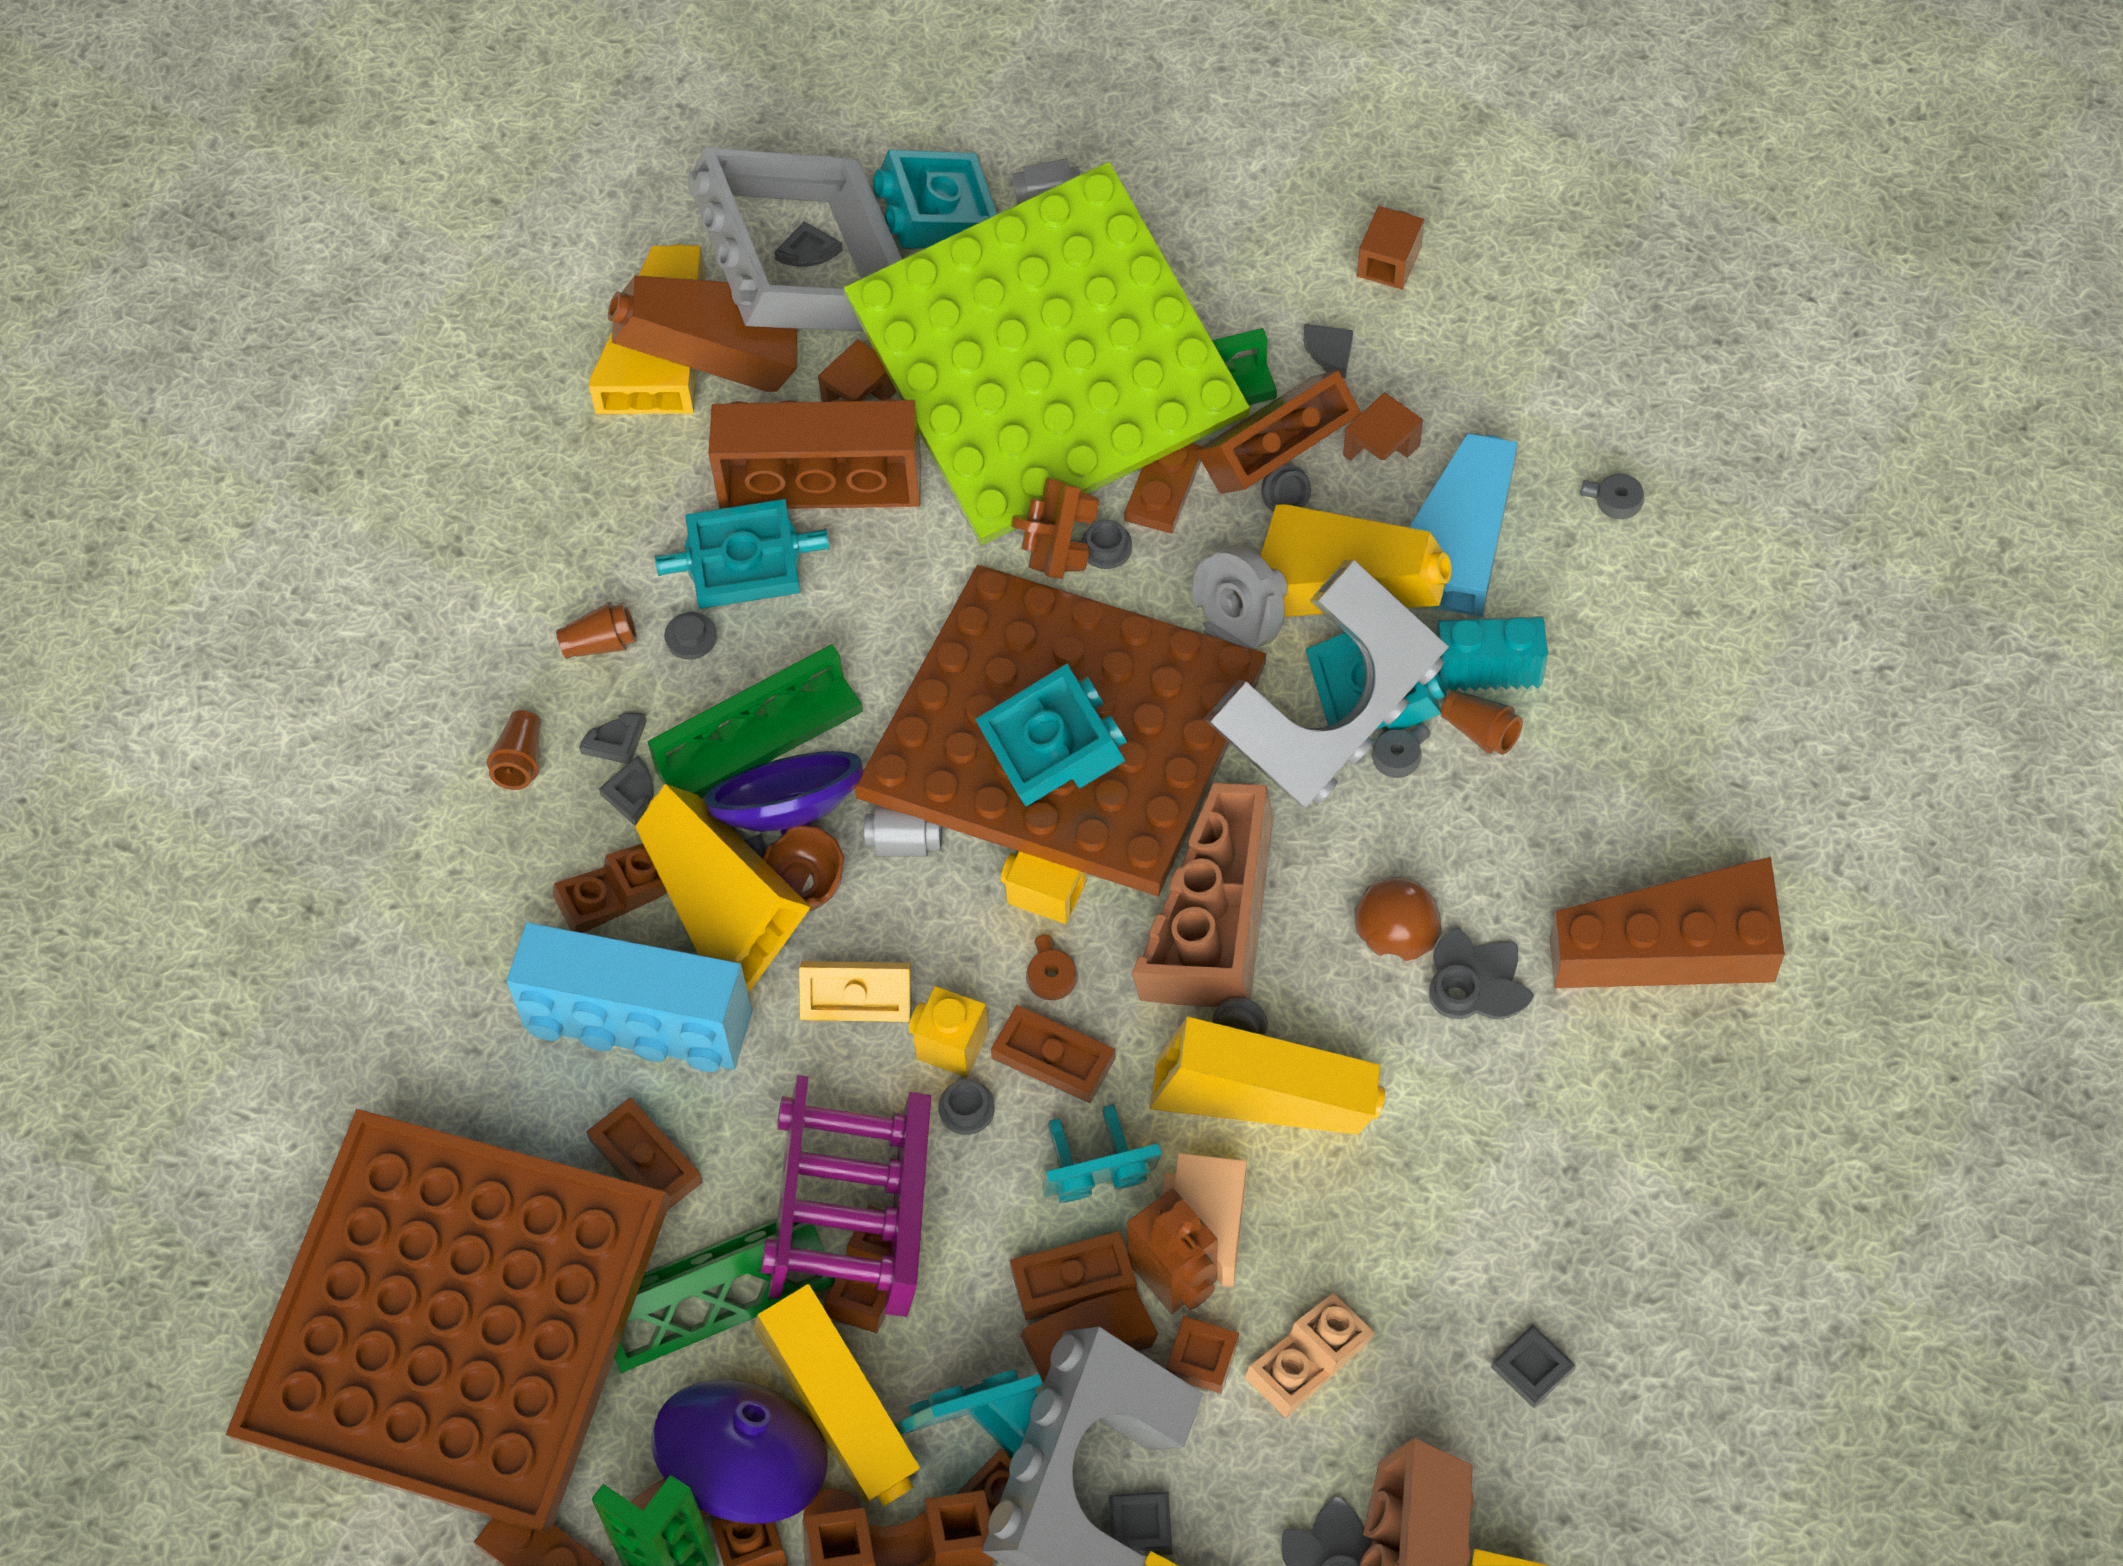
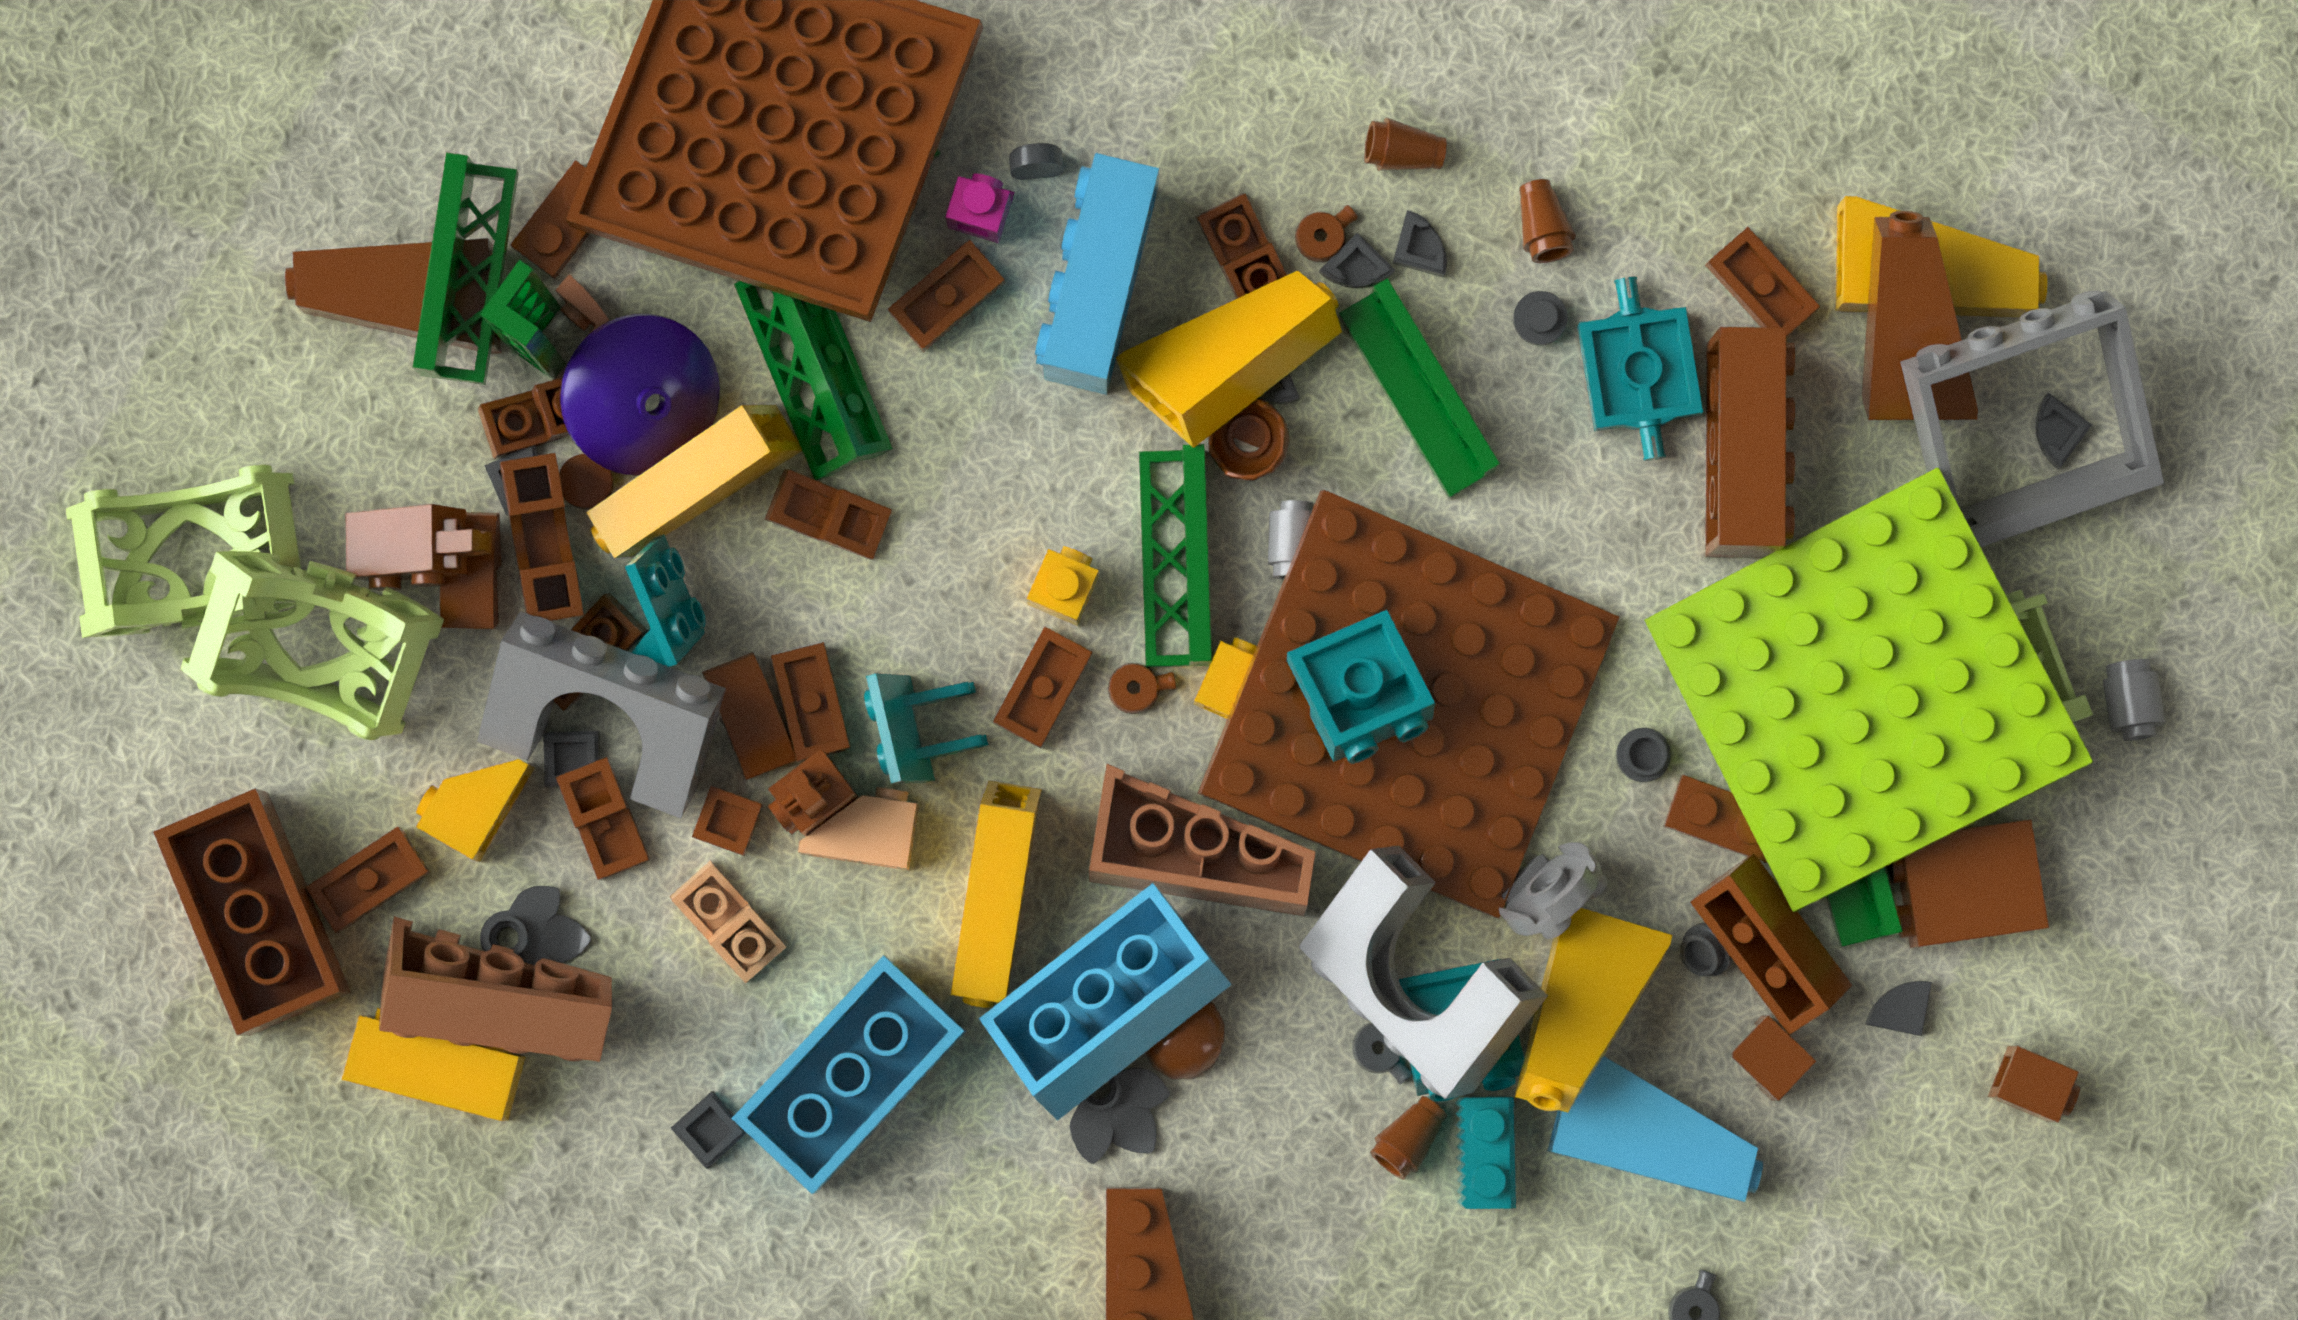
camera: 85 degrees right, 25 degrees up
(508, 1074) = (1036, 161): none -> dark grey tile
(553, 1122) = (979, 207): none -> dark pink brick
(593, 812) = (1330, 225): none -> dark orange piece
(665, 461) = (1762, 283): none -> dark orange plate
(785, 791) = (1332, 418): dark purple dish -> none
(855, 376) = (1857, 480): dark orange panel -> none
(855, 991) = (1114, 494): yellow plate -> none
(896, 1224) = (904, 538): magenta fence -> none
(925, 915) = (1195, 554): none -> green fence
(932, 195) = (2116, 572): teal plate -> none
(966, 1107) = (991, 603): dark grey plate -> none
(1050, 528) = (1645, 692): dark orange hips -> none
(1205, 1484) = (603, 818): none -> dark orange slope
(1223, 282) = (1971, 886): none -> dark orange panel
(1242, 1015) = (1065, 870): dark grey plate -> none
(1372, 967) = (1104, 1002): none -> medium azure brick
(1465, 1214) = (848, 1075): none -> medium azure brick

